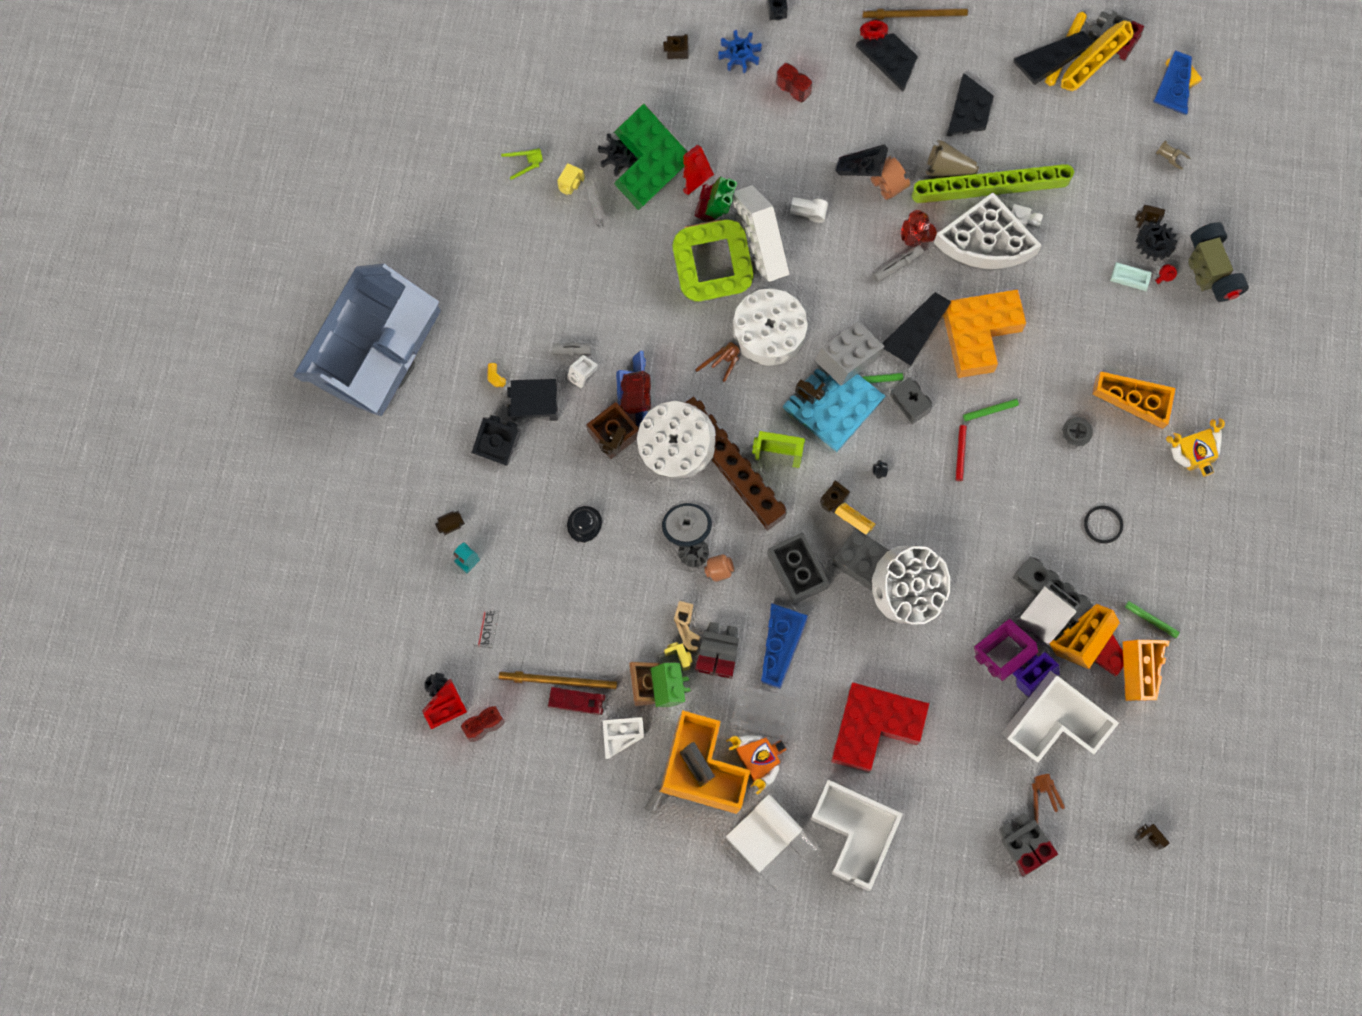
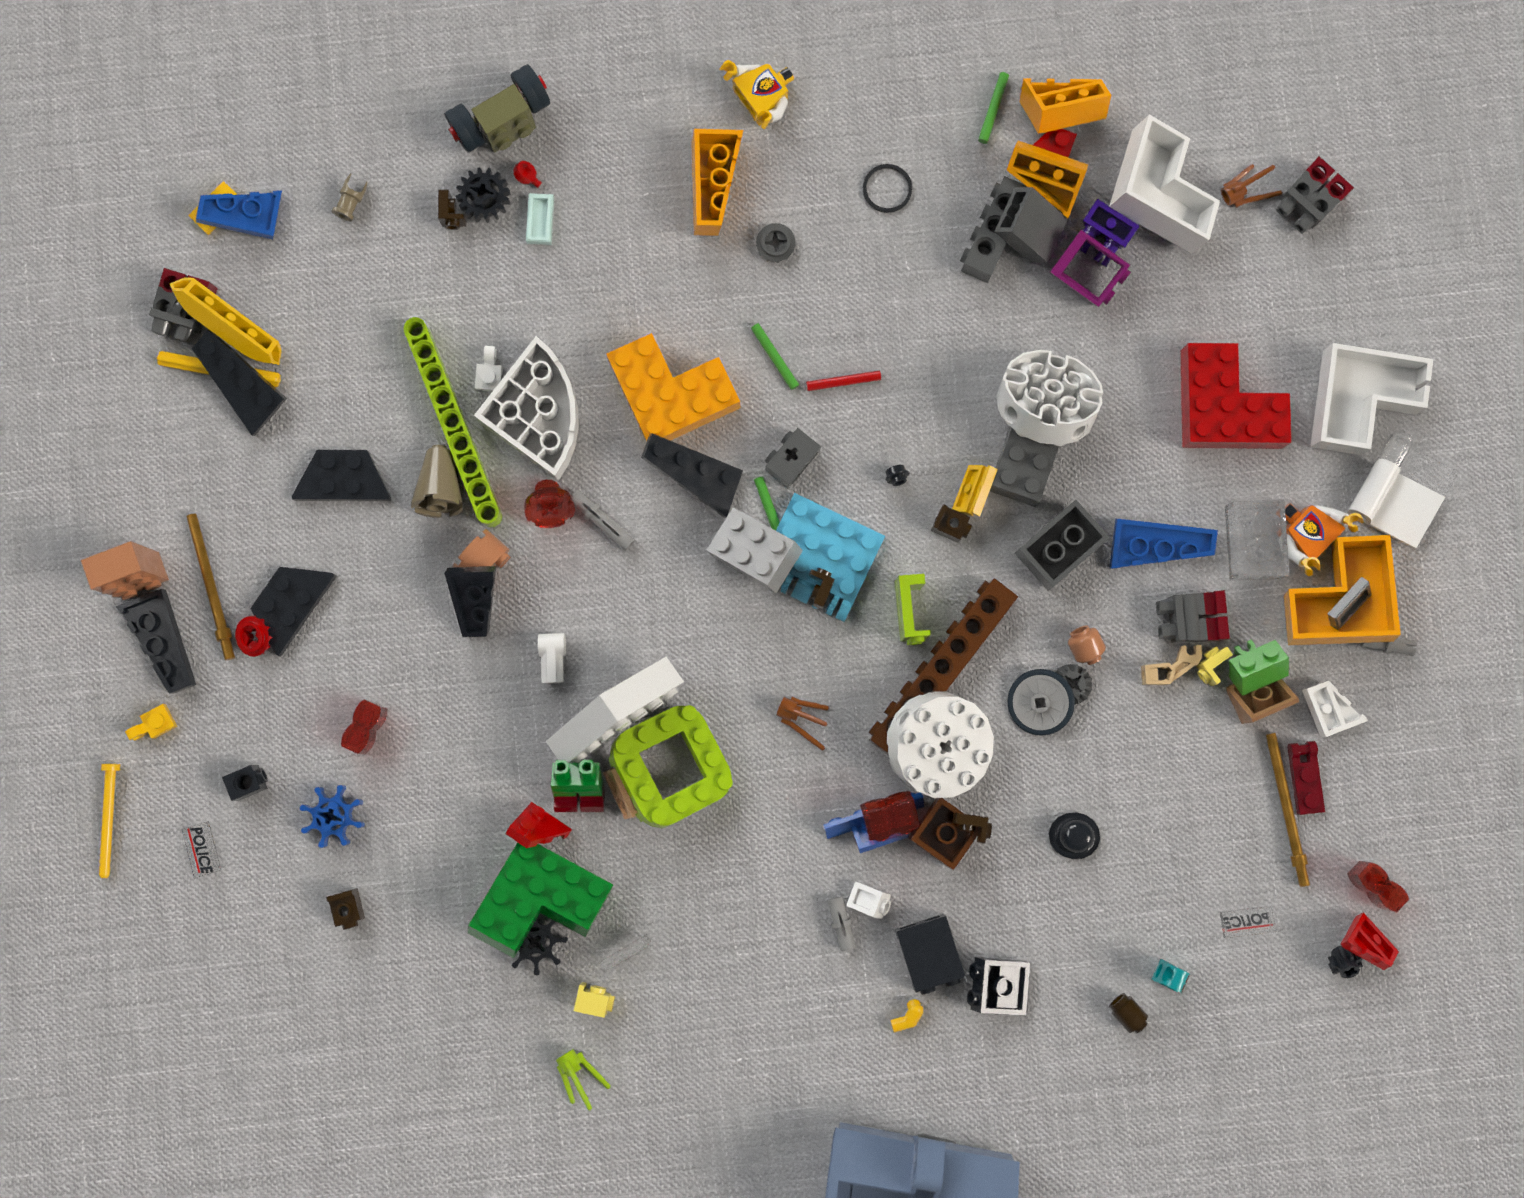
camera: 110 degrees left, 10 degrees up
(753, 322) = (746, 640): white brick -> none
(1155, 836) = (1255, 62): dark brown bracket -> none

